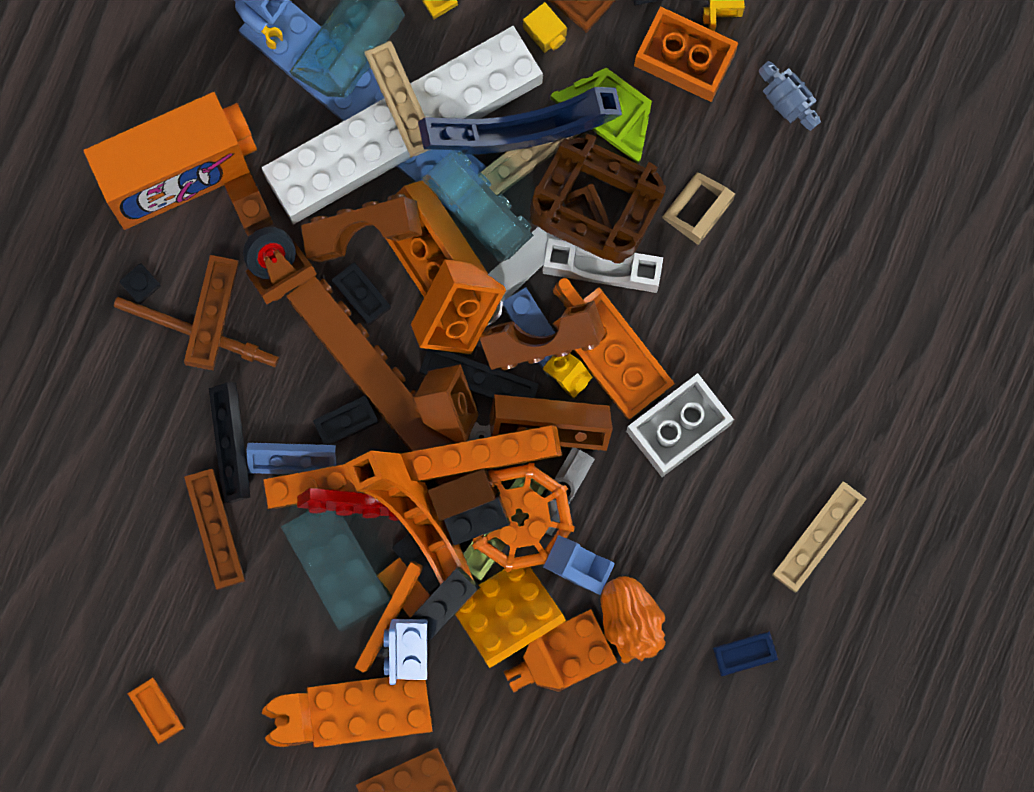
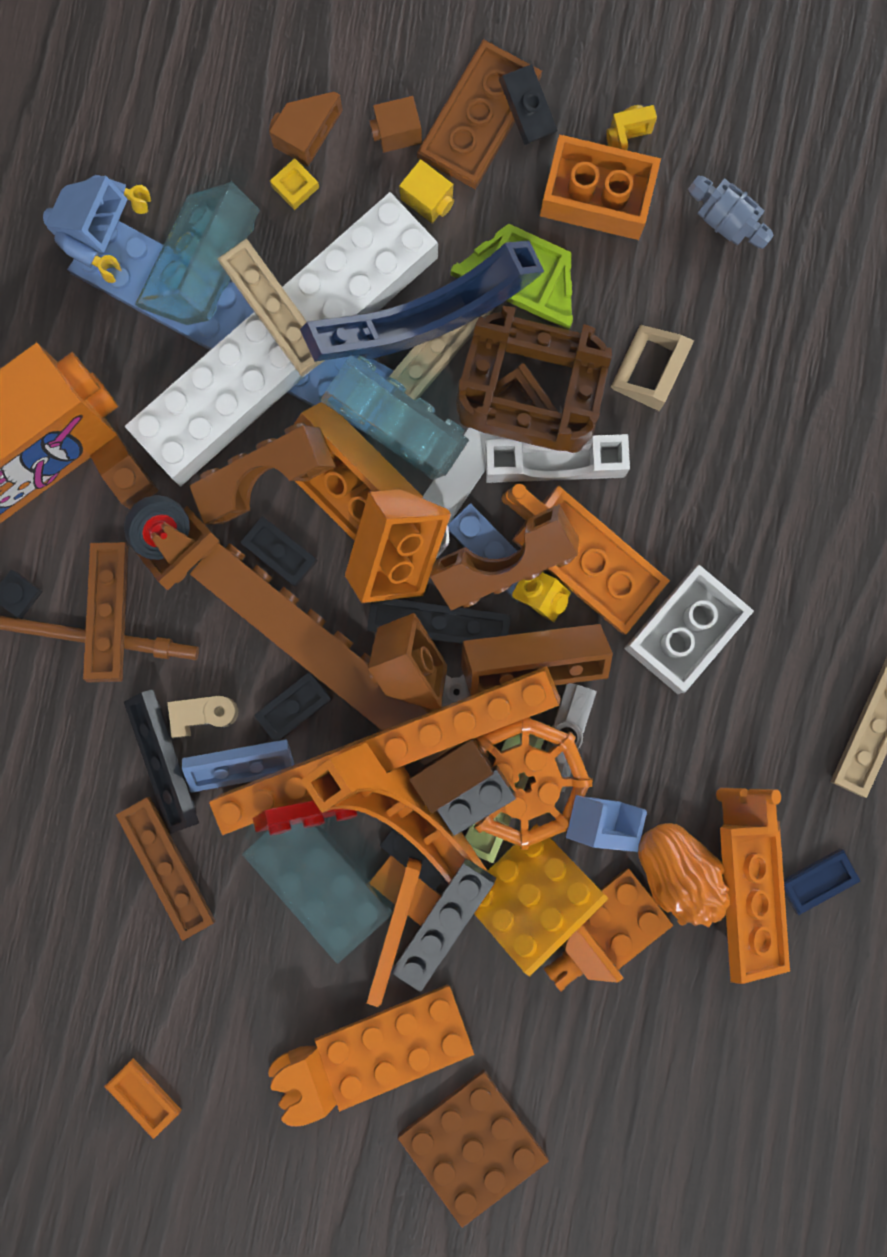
camera: 10 degrees left, 5 degrees up
(270, 409) = (214, 710): none -> tan leg
(407, 650) = (424, 970): bracket -> none
(688, 641) = (755, 883): none -> orange hinge

